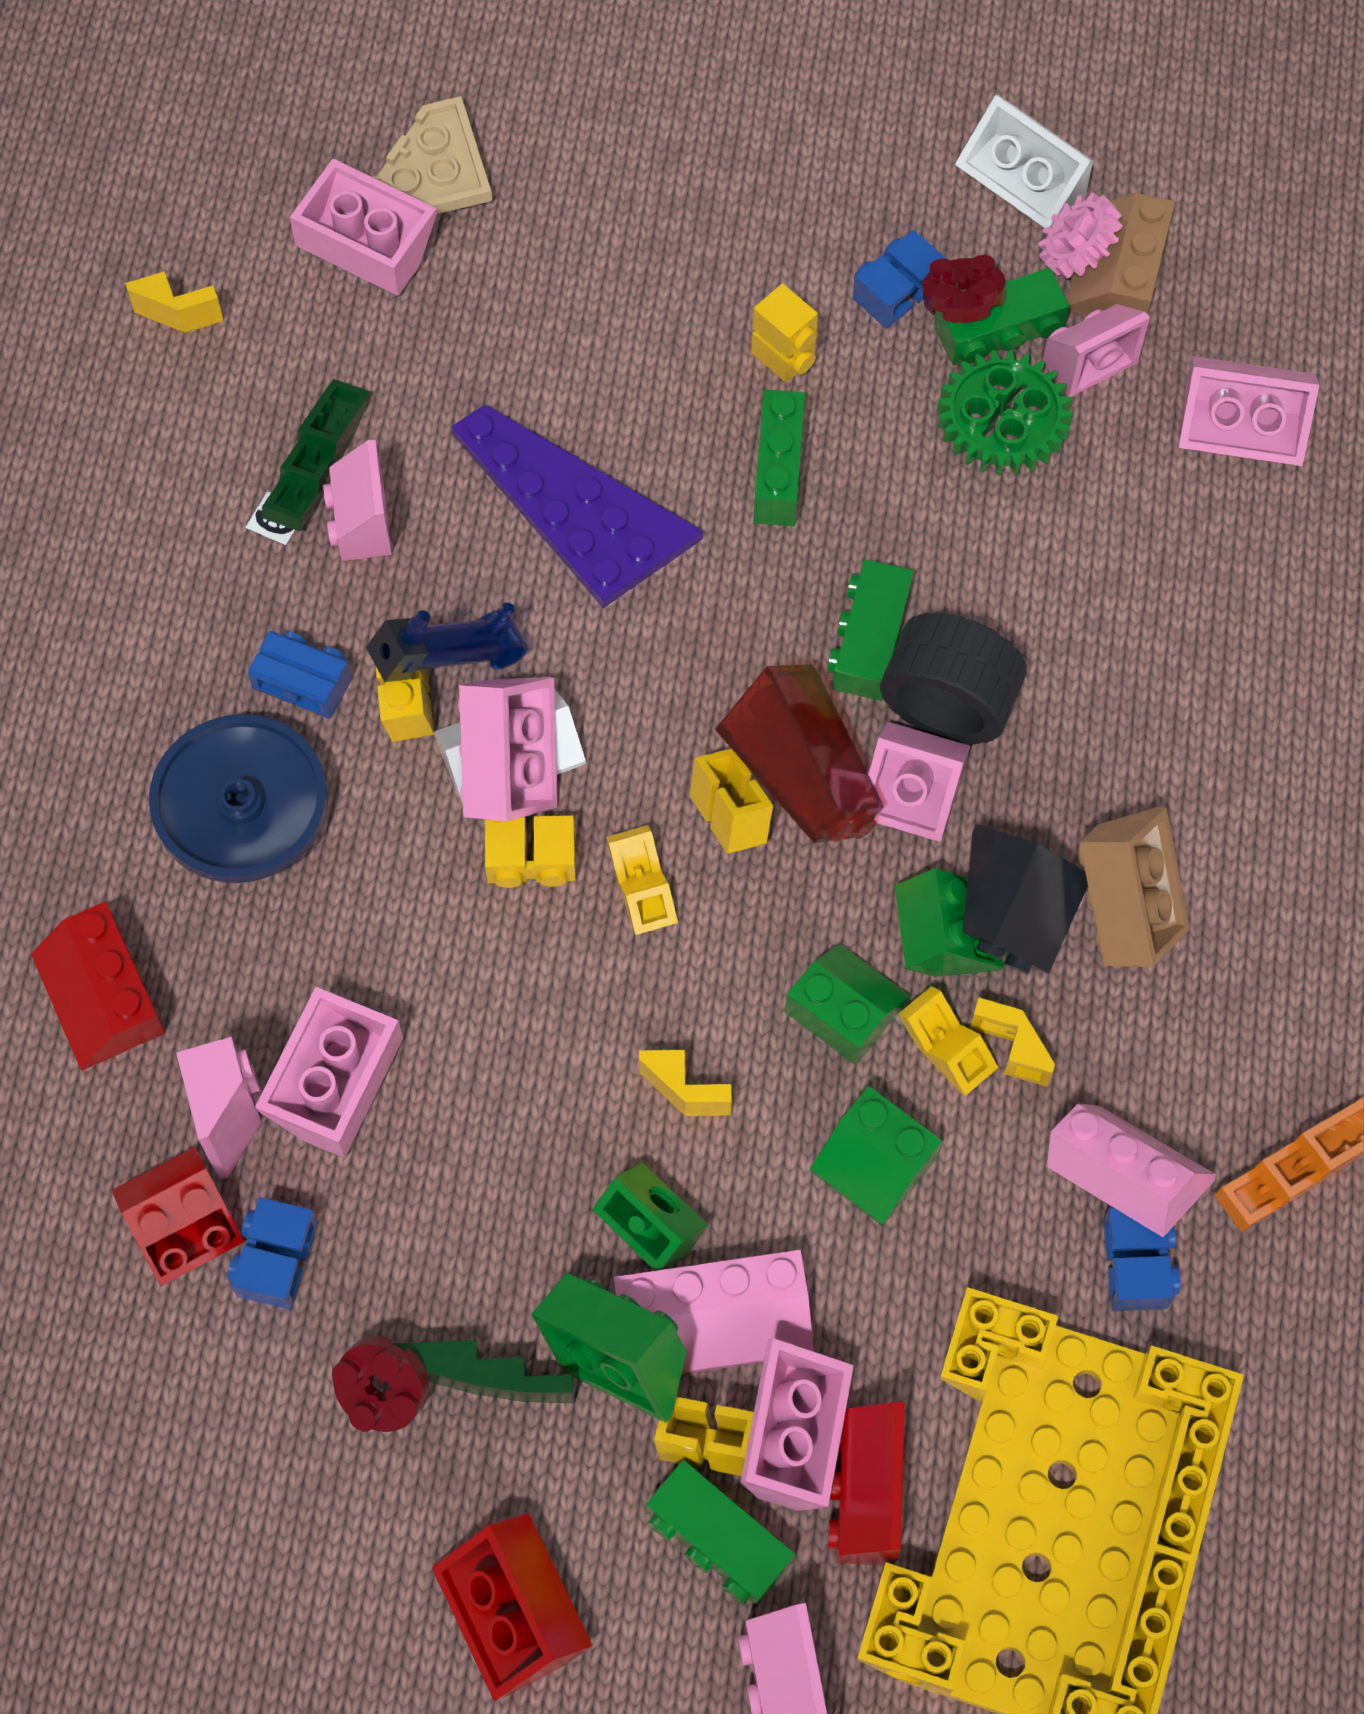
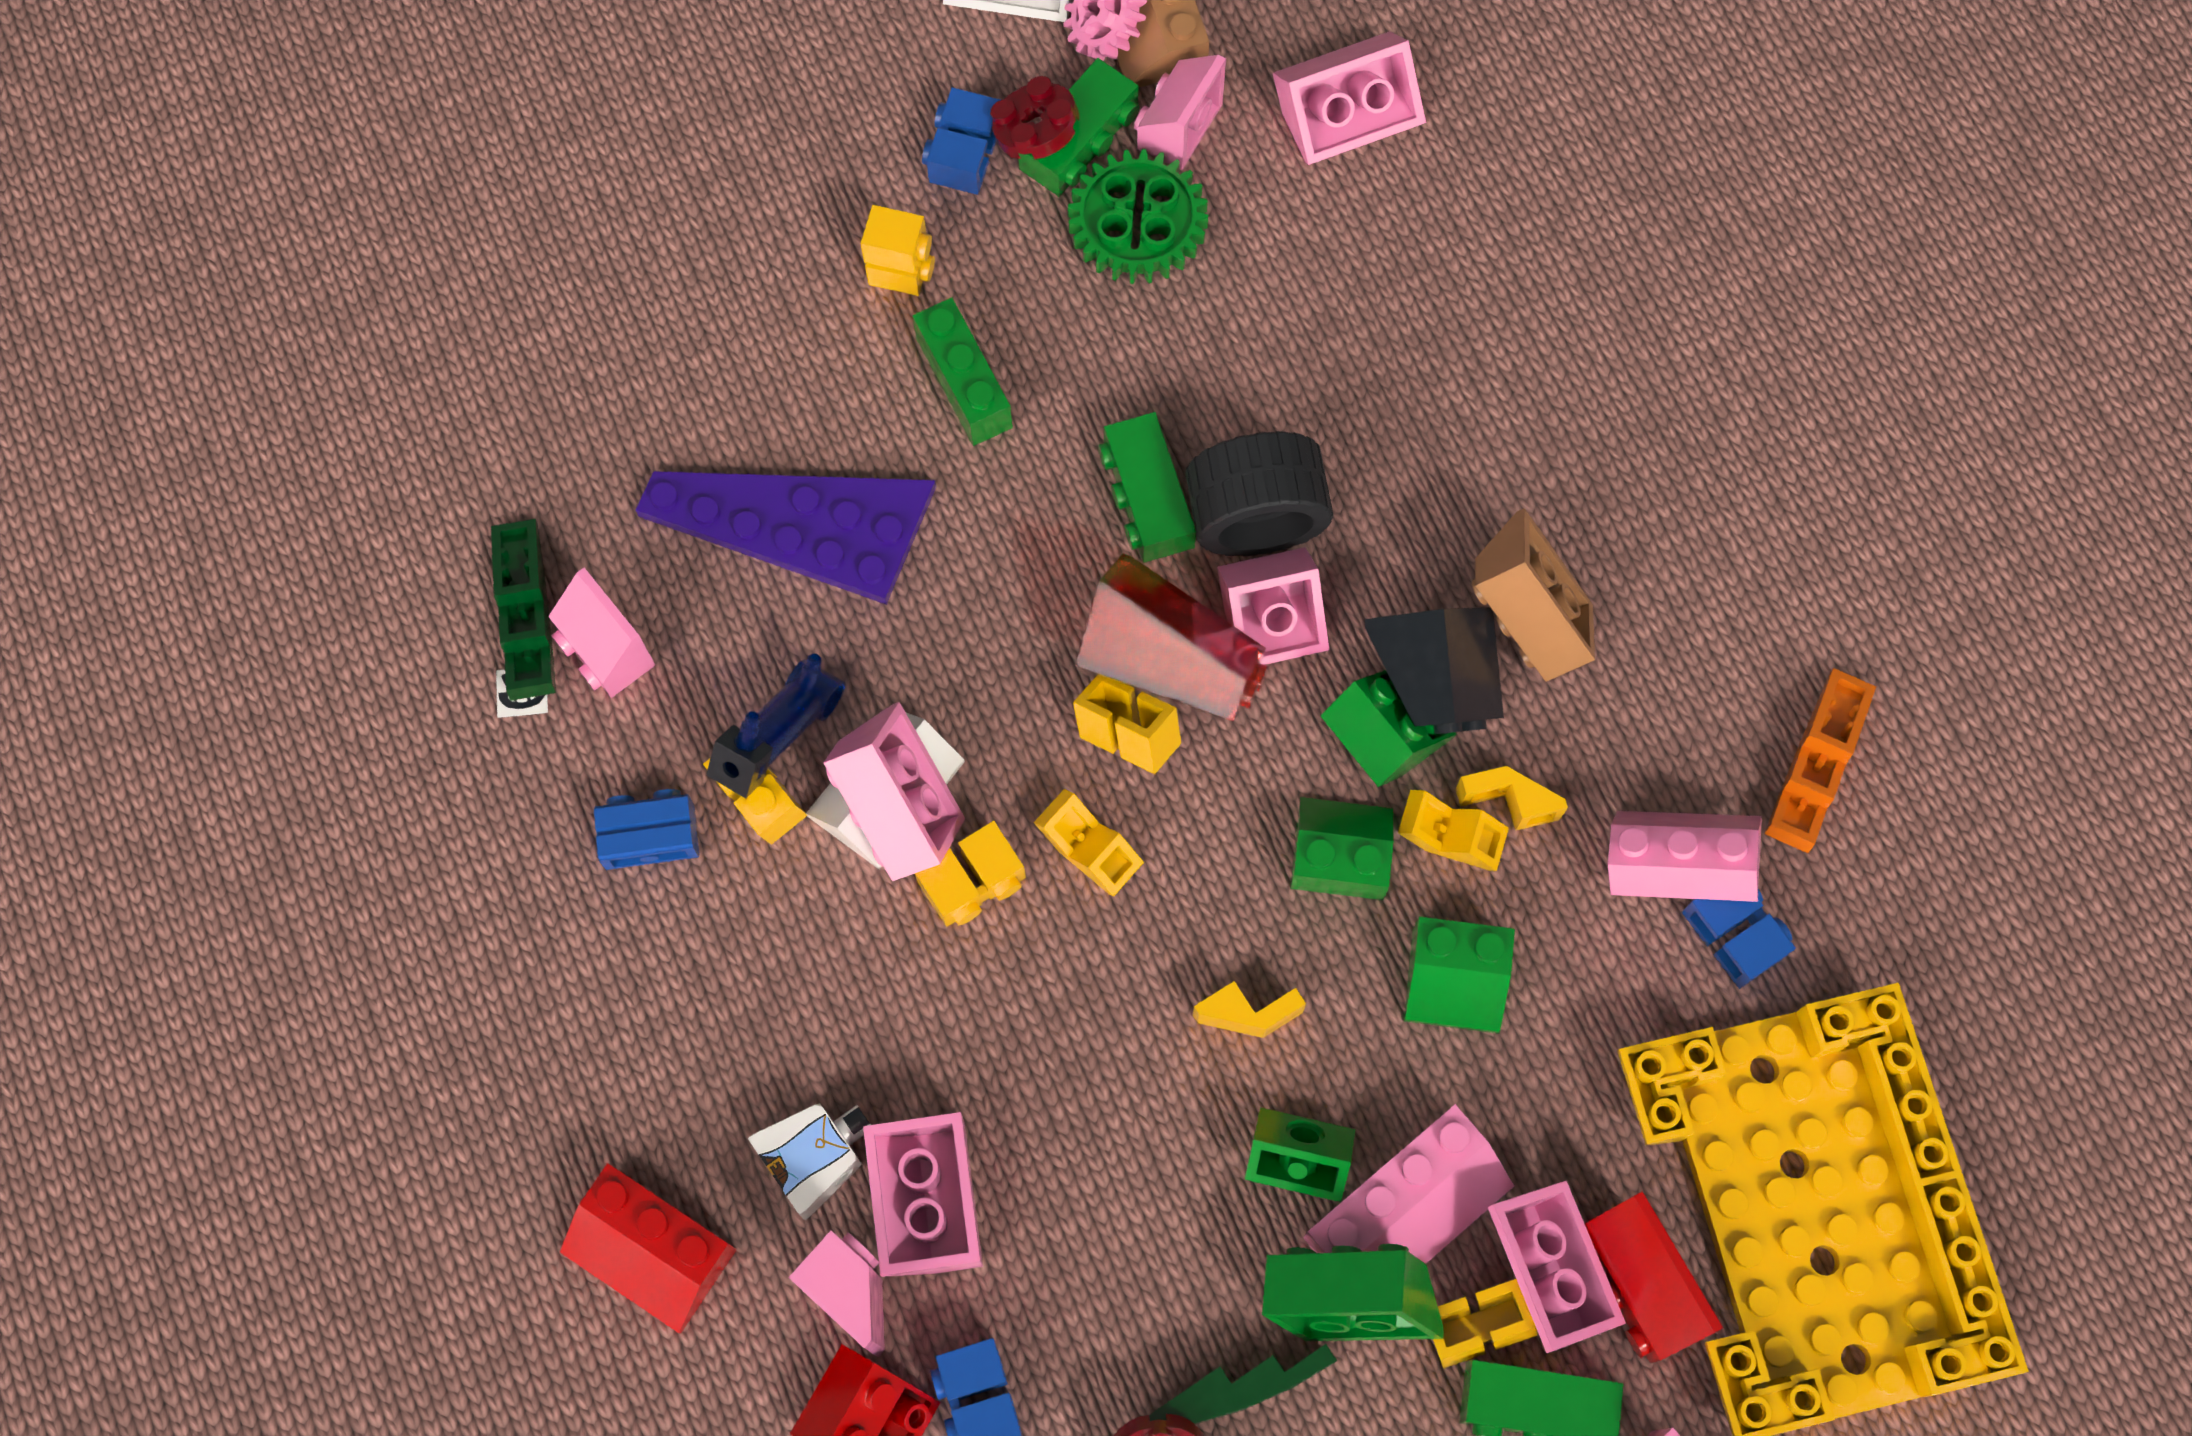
camera: 30 degrees left, 5 degrees up
(186, 312) = (268, 543): yellow slope -> none
(238, 798) = (667, 986): dark blue dish -> none
(264, 991) = (811, 1154): none -> torso
(363, 226) = (428, 361): bright pink slope -> none
(439, 159) = (453, 268): tan plate -> none

